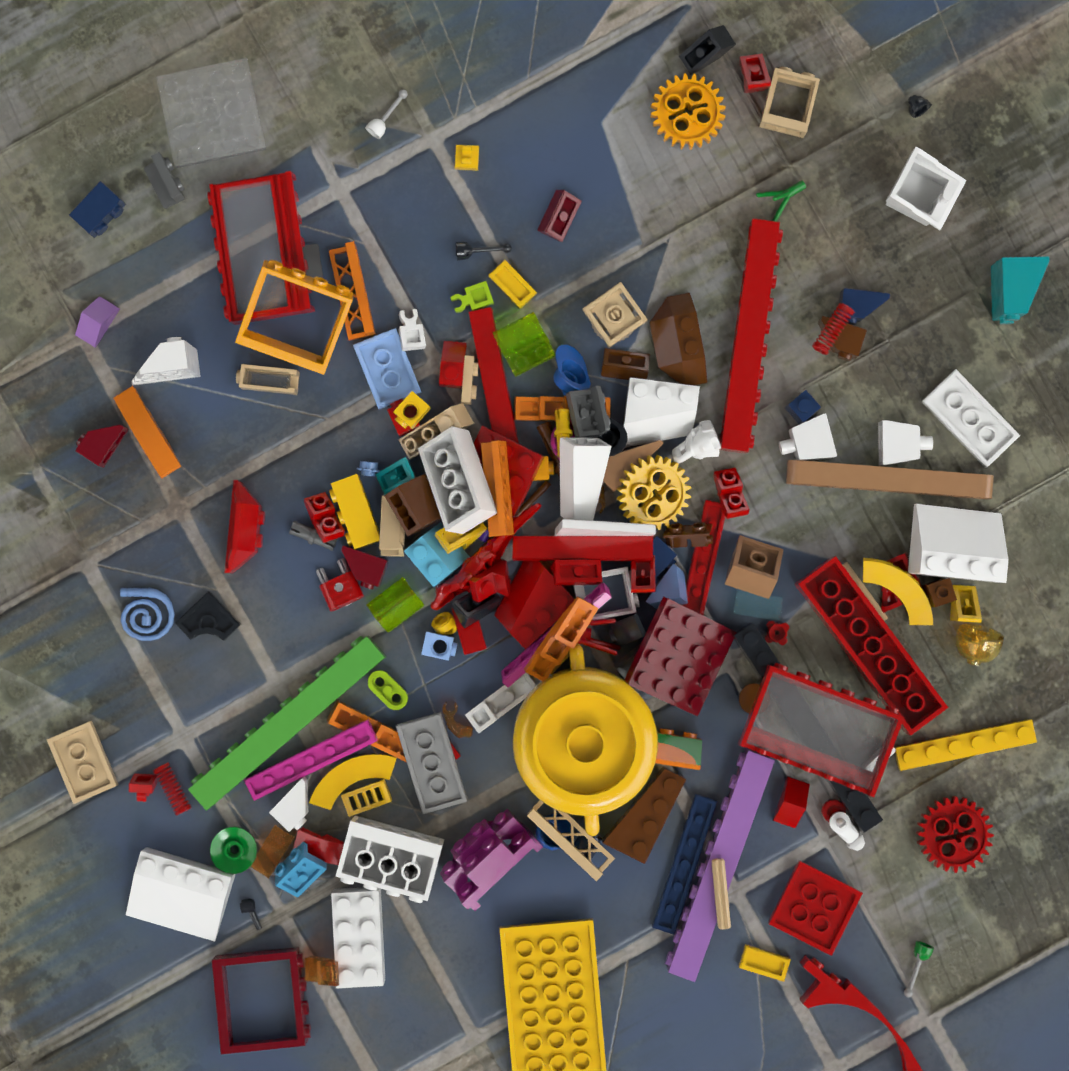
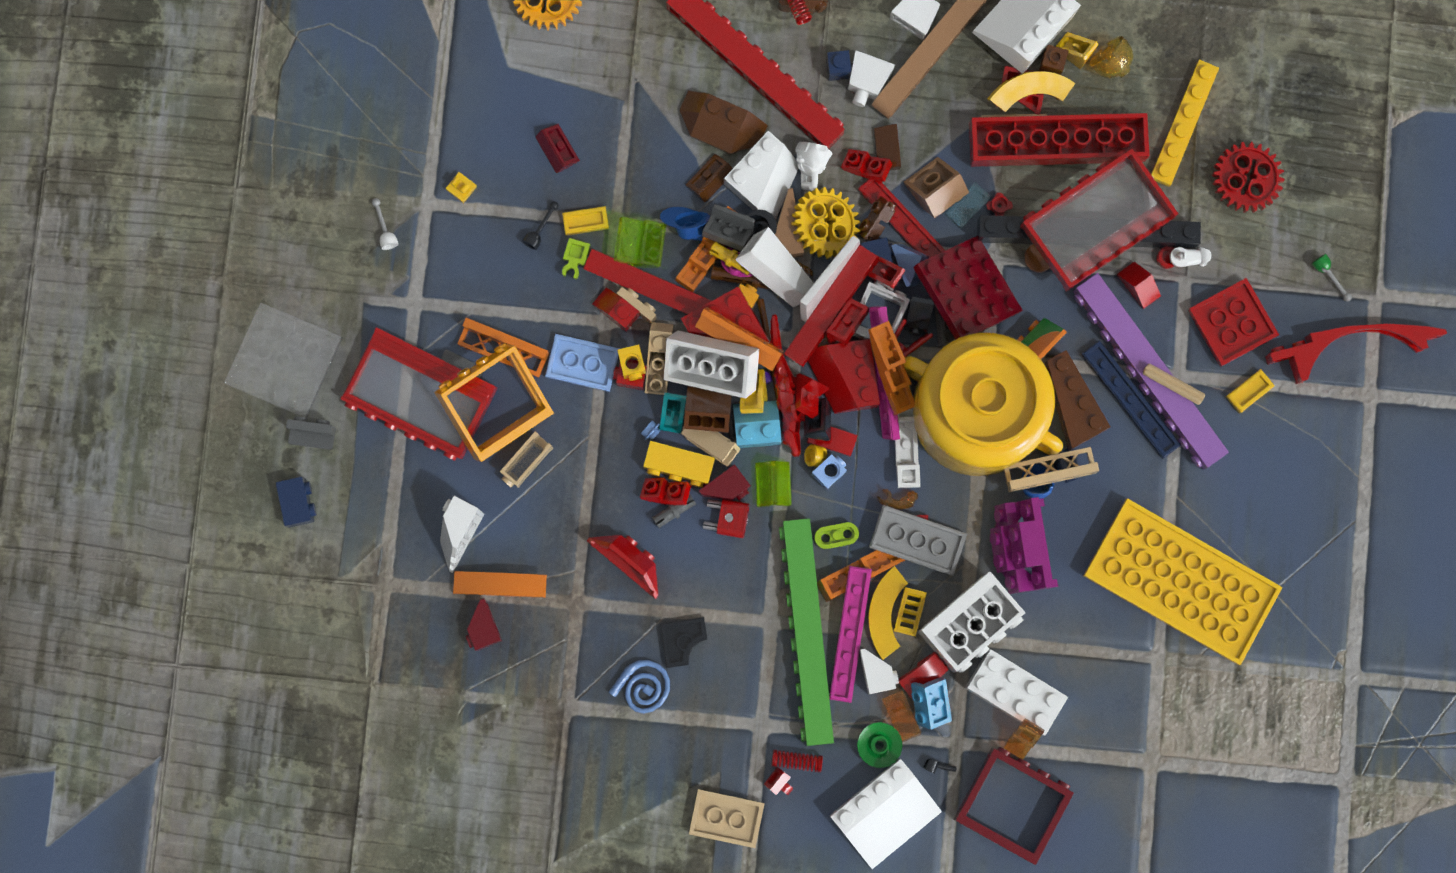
camera: 60 degrees left, 5 degrees down
(95, 321) = (382, 565): medium lavender slope -> none
(411, 334) = (568, 324): white plate -> none
(614, 315) = (667, 156): tan piece -> none
(762, 499) = (888, 144): none -> reddish brown slope

